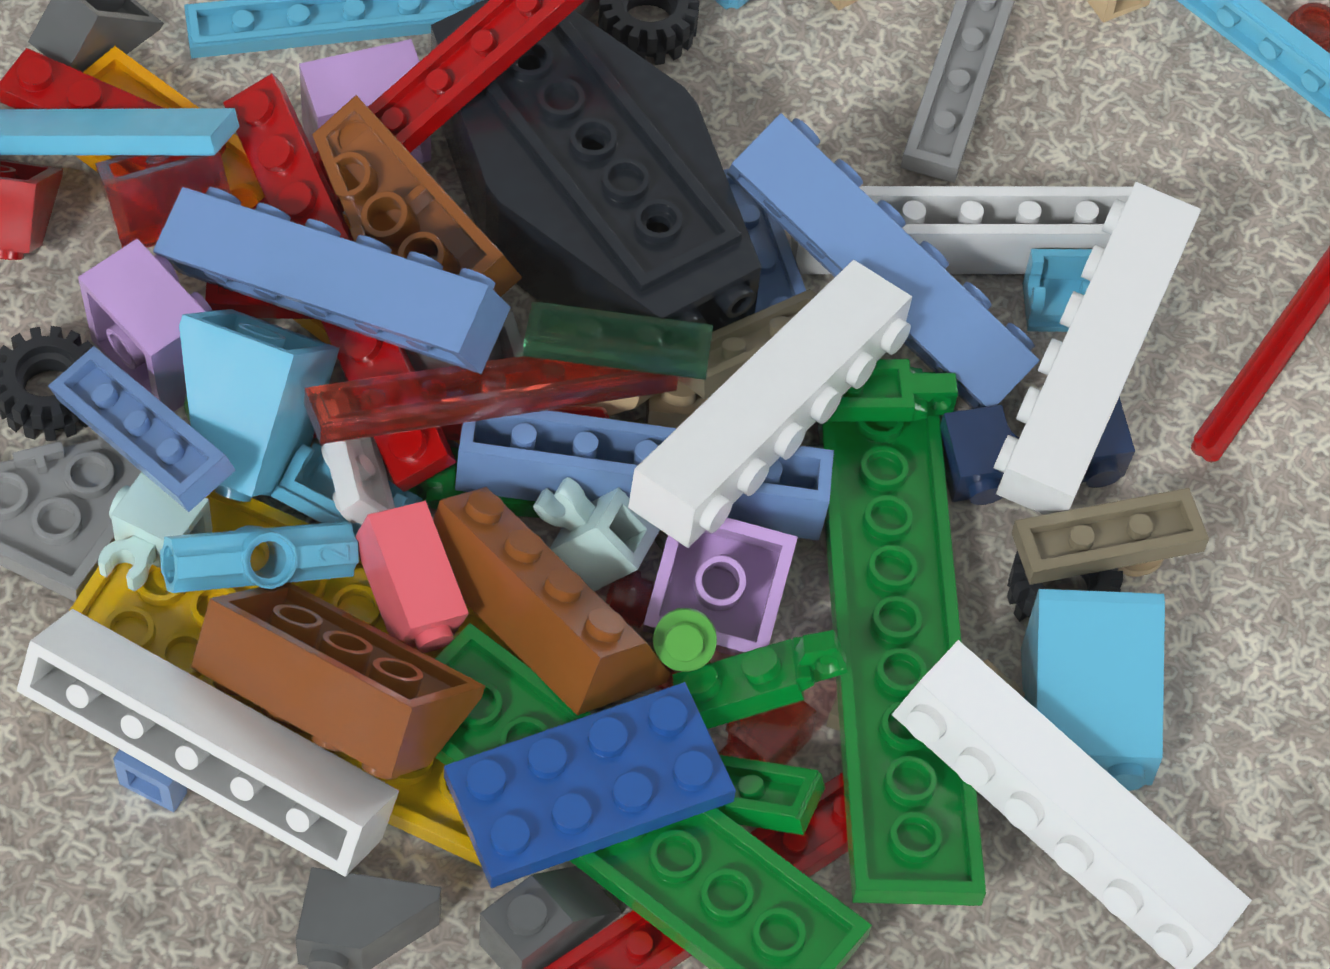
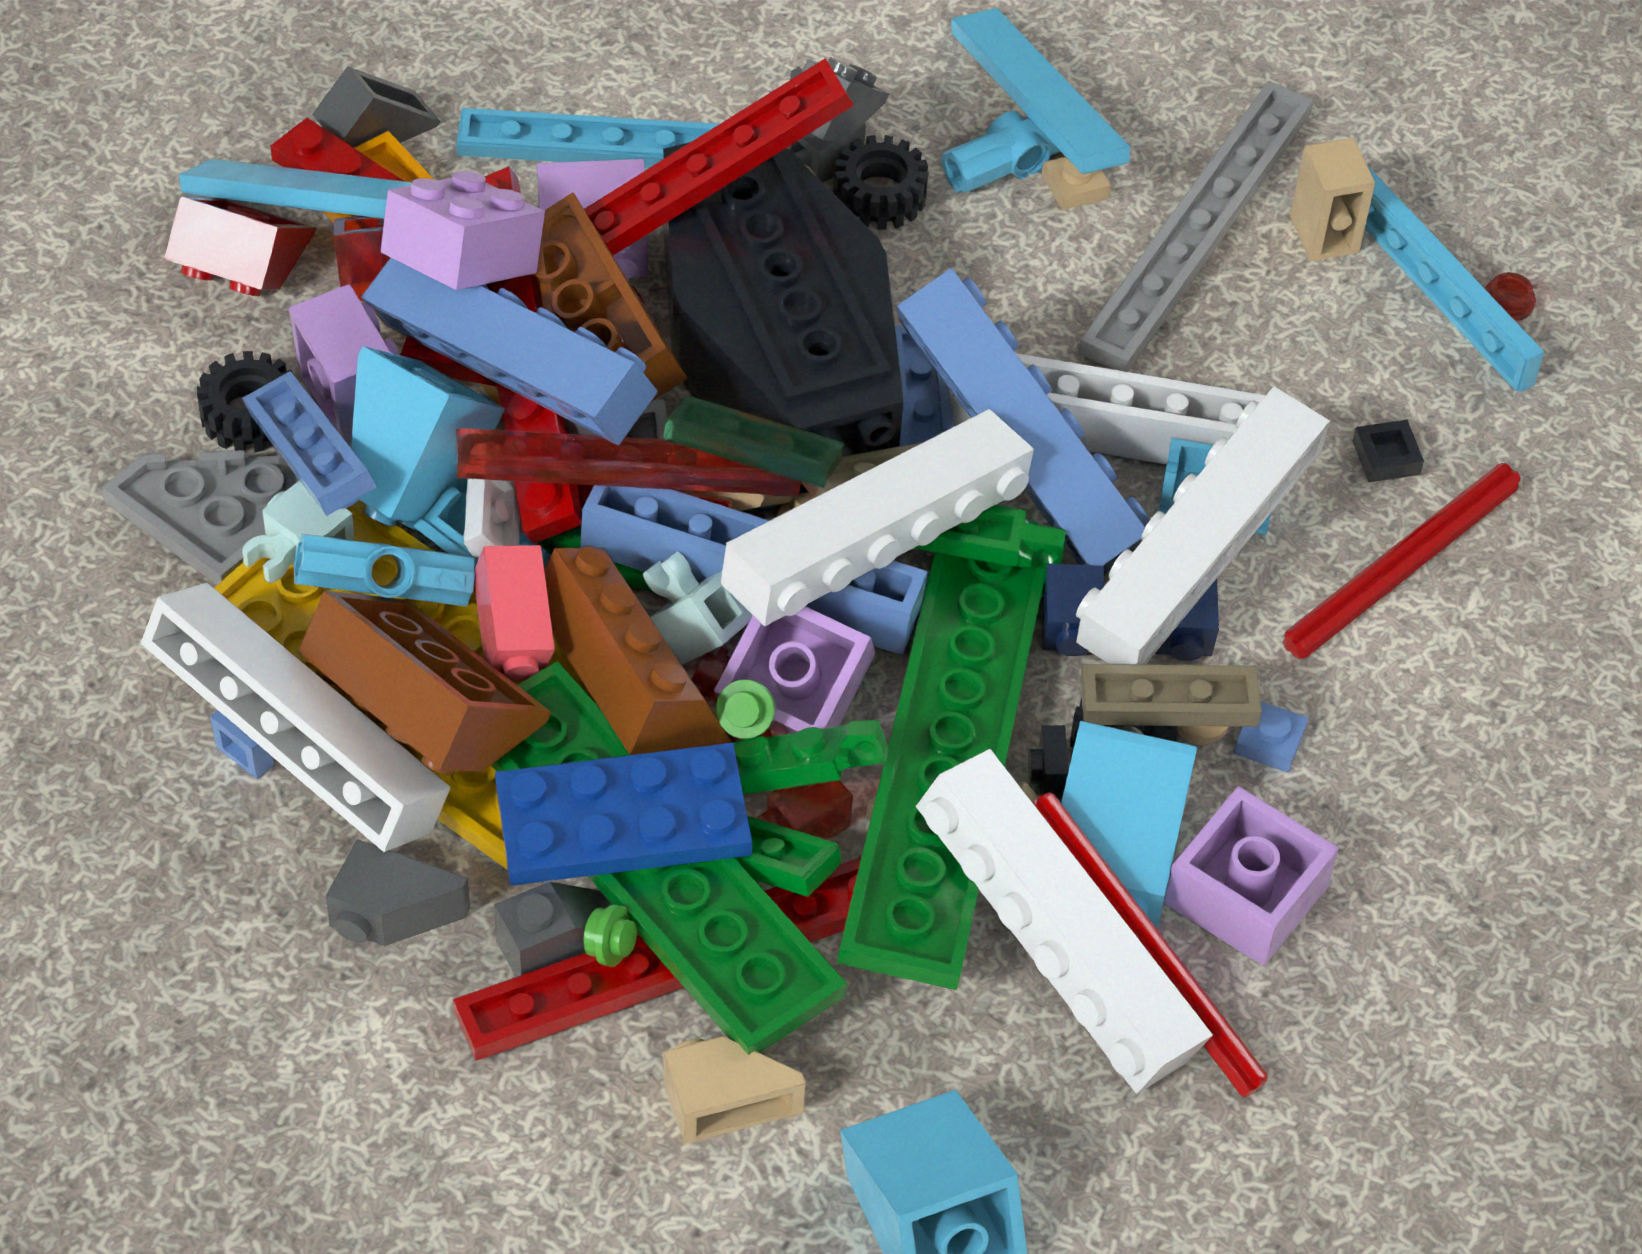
camera: 15 degrees right, 5 degrees down
(252, 162) = (462, 230): none -> lavender brick
(609, 921) = (610, 935): none -> bright green plate
(1002, 632) = (1049, 762): none -> black plate
(1219, 562) = (1275, 739): none -> medium blue plate
(1240, 715) = (1251, 875): none -> lavender brick
(1241, 219) = (1388, 450): none -> black plate
(1265, 909) = (1225, 1044): none -> red axle

